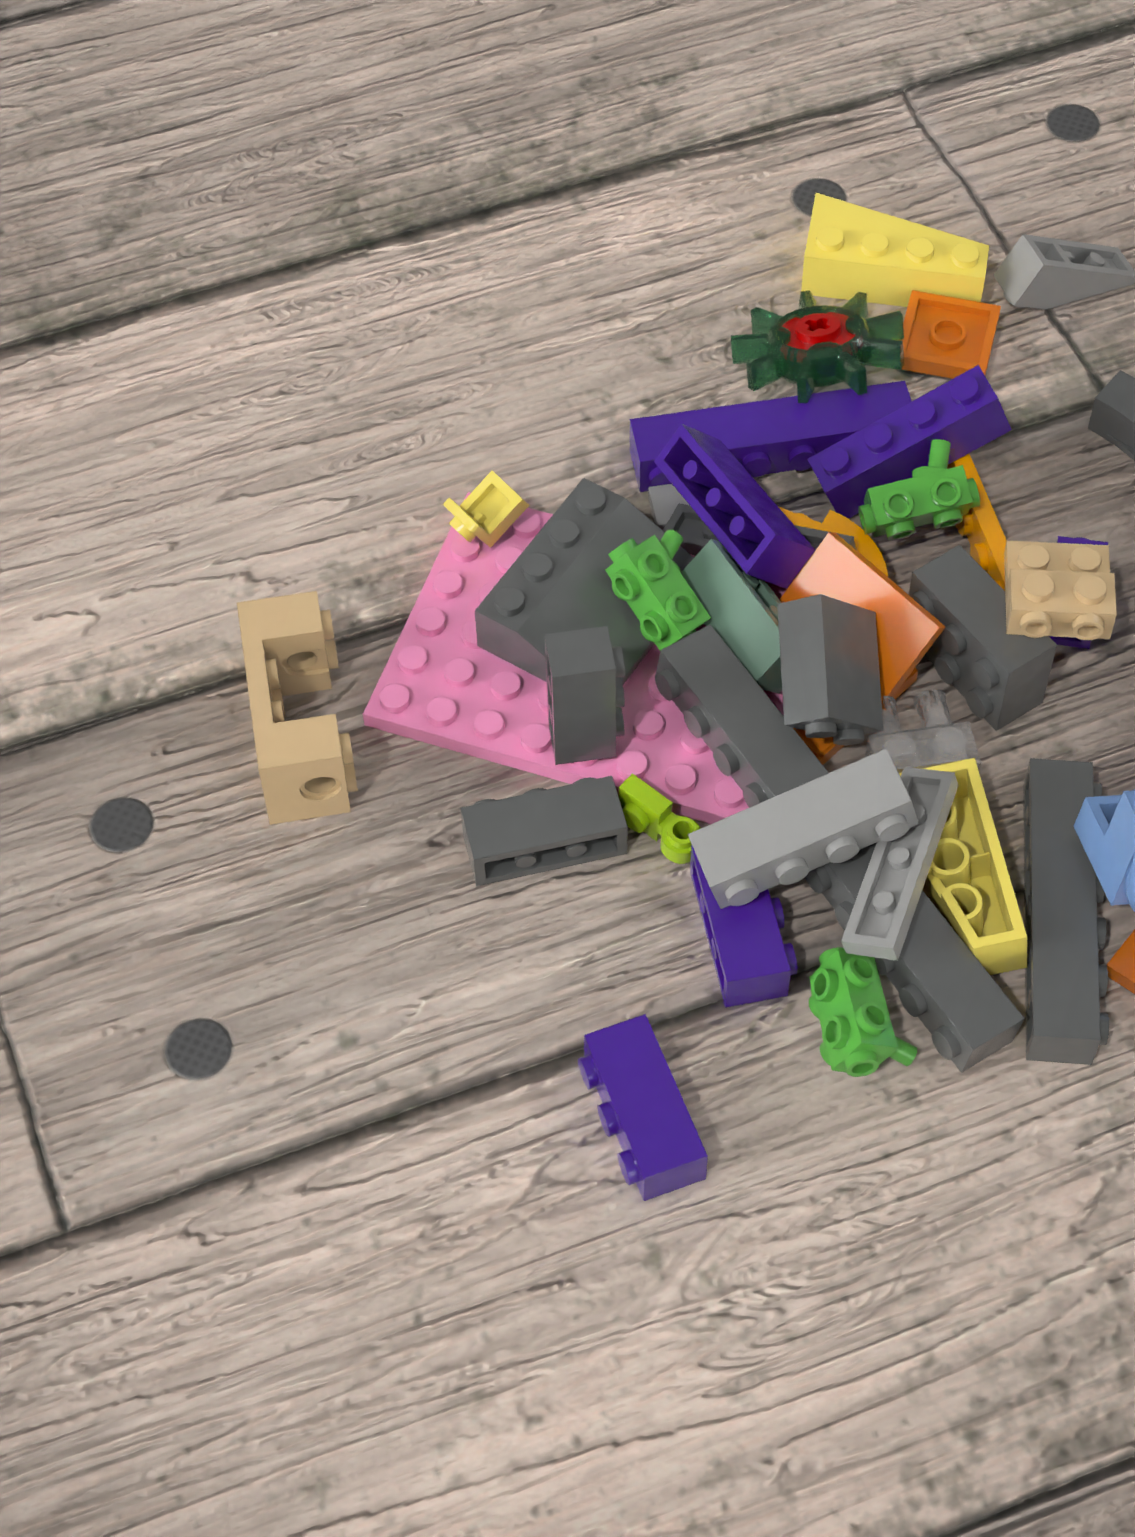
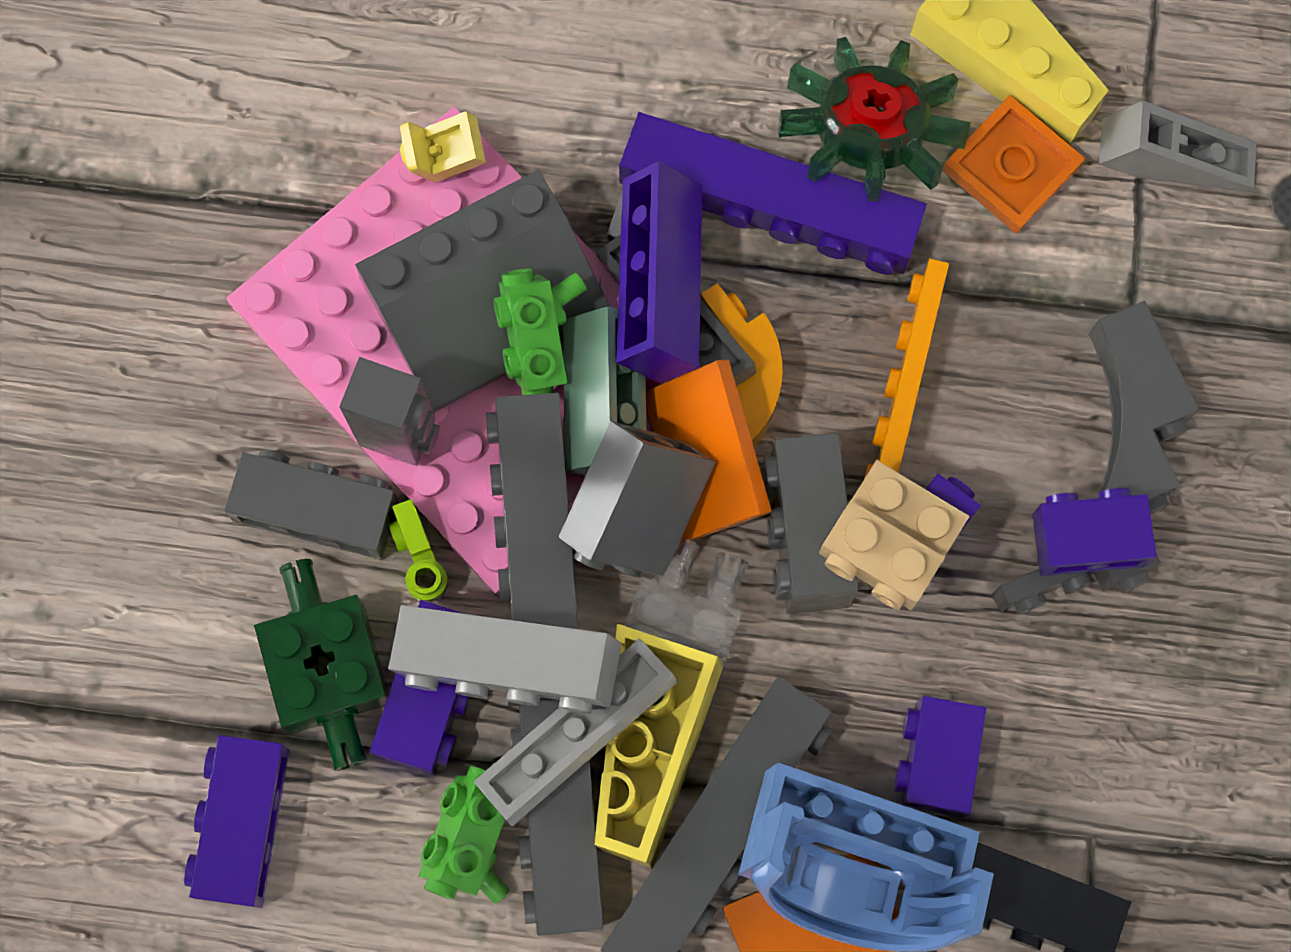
camera: 25 degrees right, 20 degrees up
(304, 761) = (162, 198): tan plate -> none
(636, 943) = (292, 648): none -> dark green brick
(892, 447) = (879, 283): dark purple brick -> none
(928, 497) = (859, 355): bright green brick -> none

